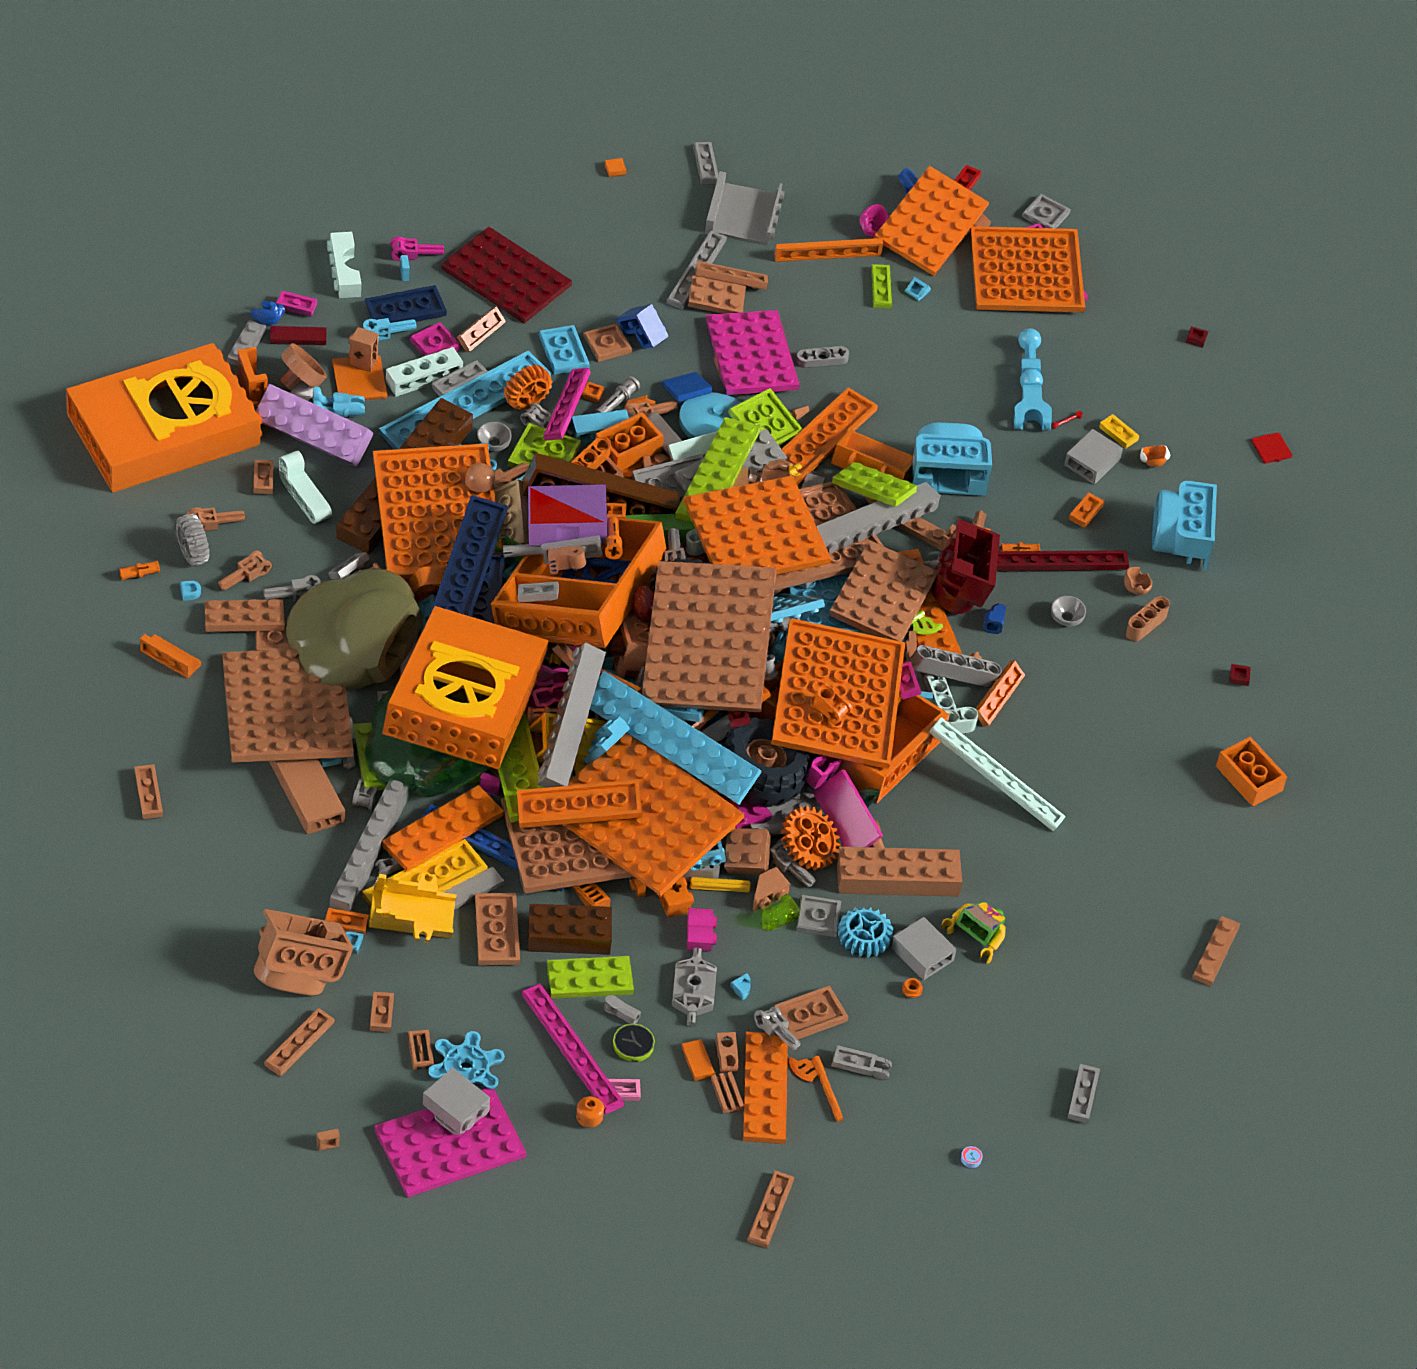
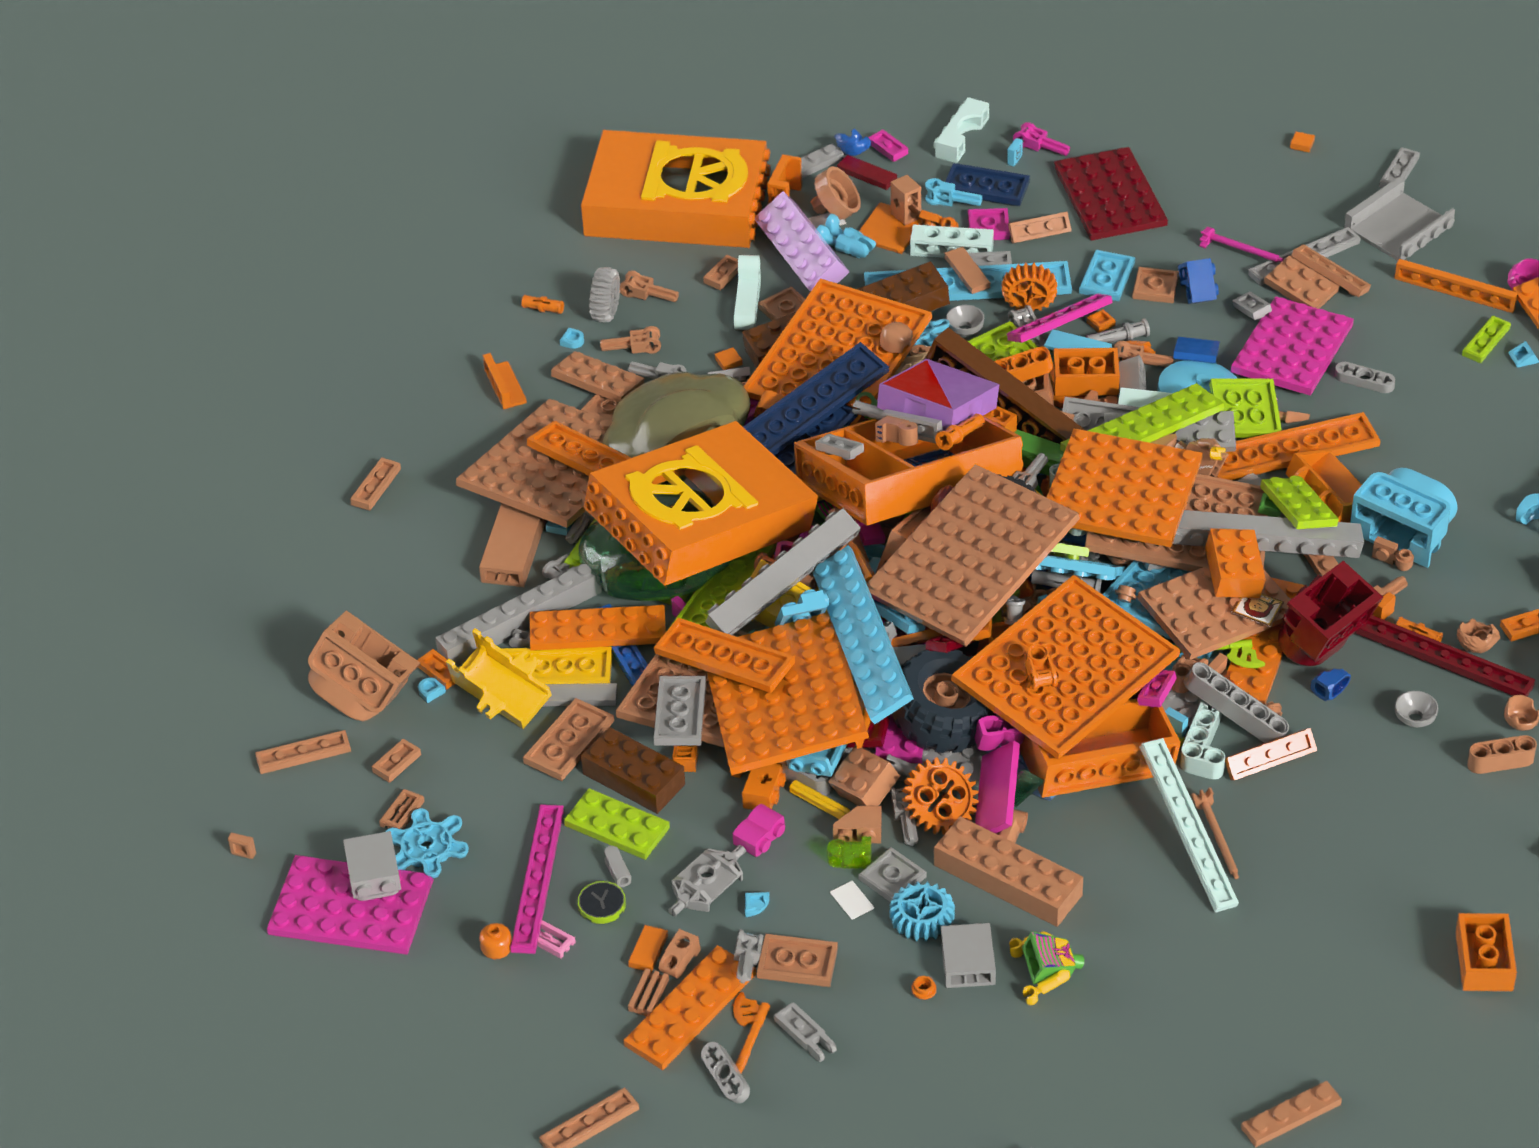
camera: 45 degrees right, 5 degrees down
(320, 688) = (574, 448): none -> orange plate
(333, 552) = (728, 359): none -> orange tile
(340, 486) = (781, 304): none -> nougat tile
(392, 357) = (936, 220): none -> orange plate
(461, 392) = (967, 270): none -> nougat tile
(578, 864) = (680, 710): none -> light grey plate
(644, 281) = (1209, 235): none -> dark pink piece
(698, 330) = (1252, 305): none -> light grey plate
(805, 948) = (852, 900): none -> white sticker
(817, 1120) = (734, 1076): none -> light grey beam
(818, 616) = (1125, 593): none -> nougat plate
(850, 497) = (1267, 507): none -> bright green tile
(879, 555) = (1235, 563): none -> orange brick
(916, 584) = (1260, 610): none -> sticker
(953, 494) = (1388, 552): none -> nougat plate
(986, 746) = (1204, 802): none -> nougat piece
(1064, 534) = (1477, 636): none -> nougat hair

